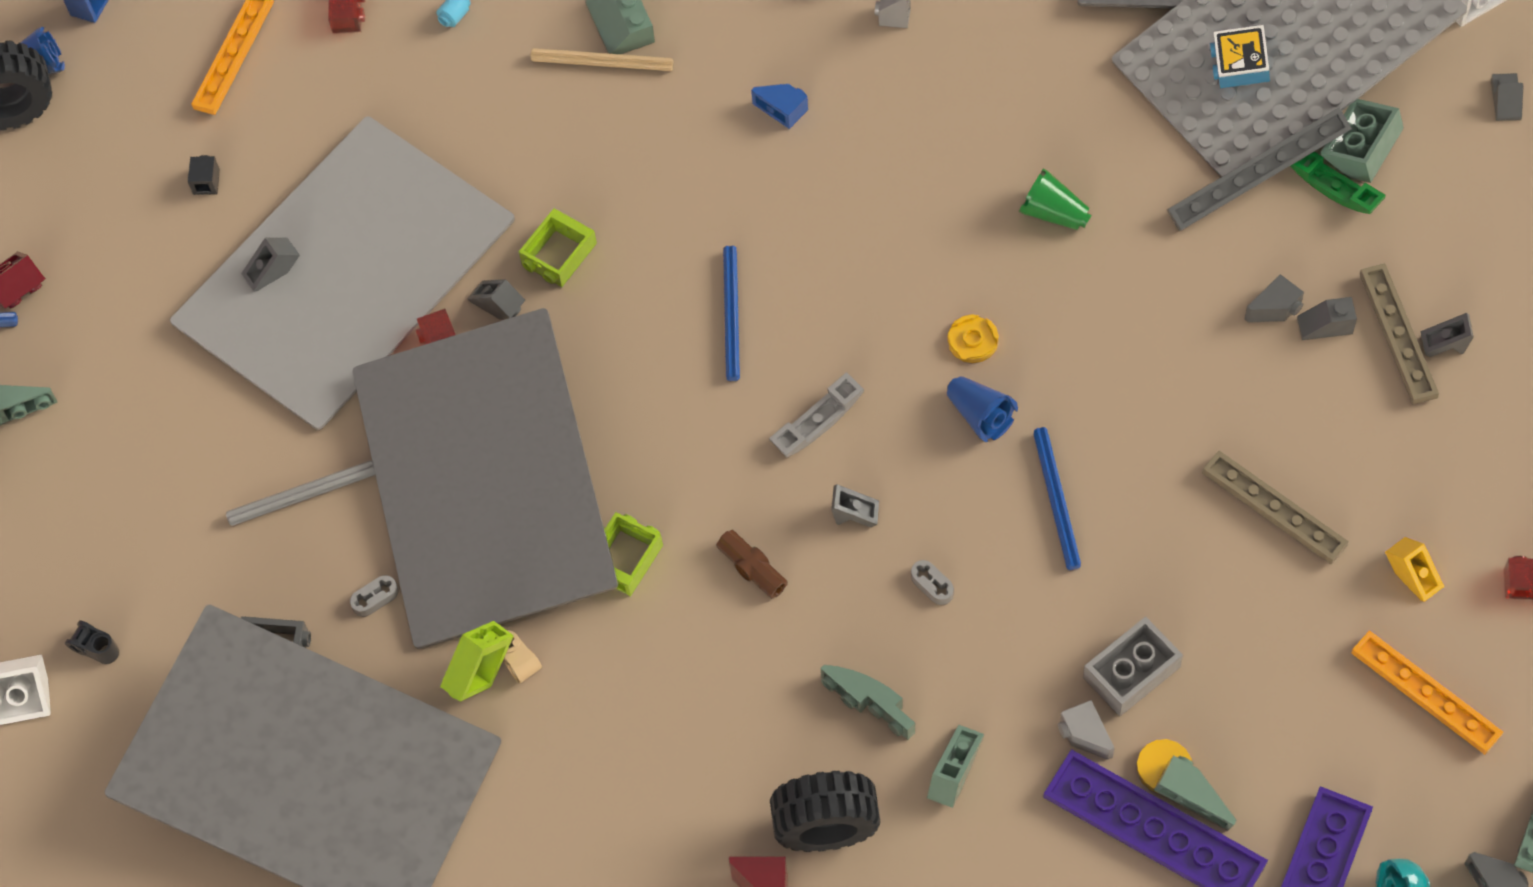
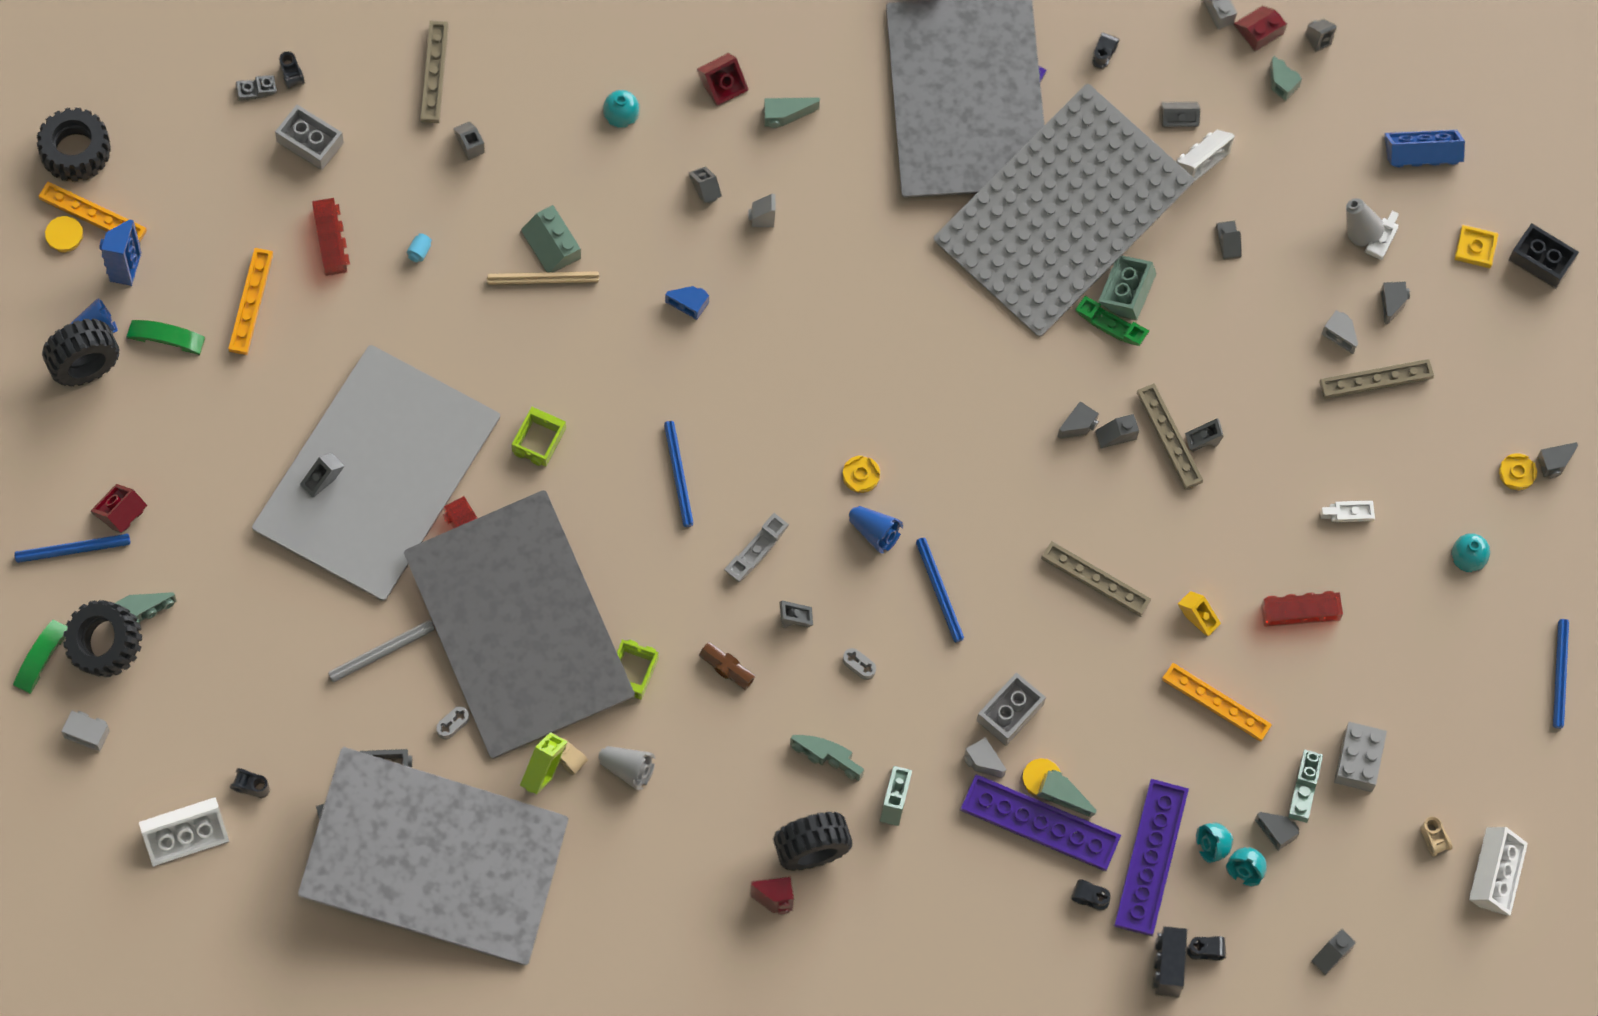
camera: 20 degrees left, 5 degrees up
(122, 80) = (166, 334): none -> green slope
(203, 175) = (251, 406): black brick -> none
(497, 298) = (500, 482): dark grey slope -> none
(596, 679) = (629, 765): none -> light grey cone
(1055, 203) = (907, 361): green cone -> none
(1240, 56) = (1031, 232): piece -> none
(1259, 169) = (1054, 319): dark grey plate -> none

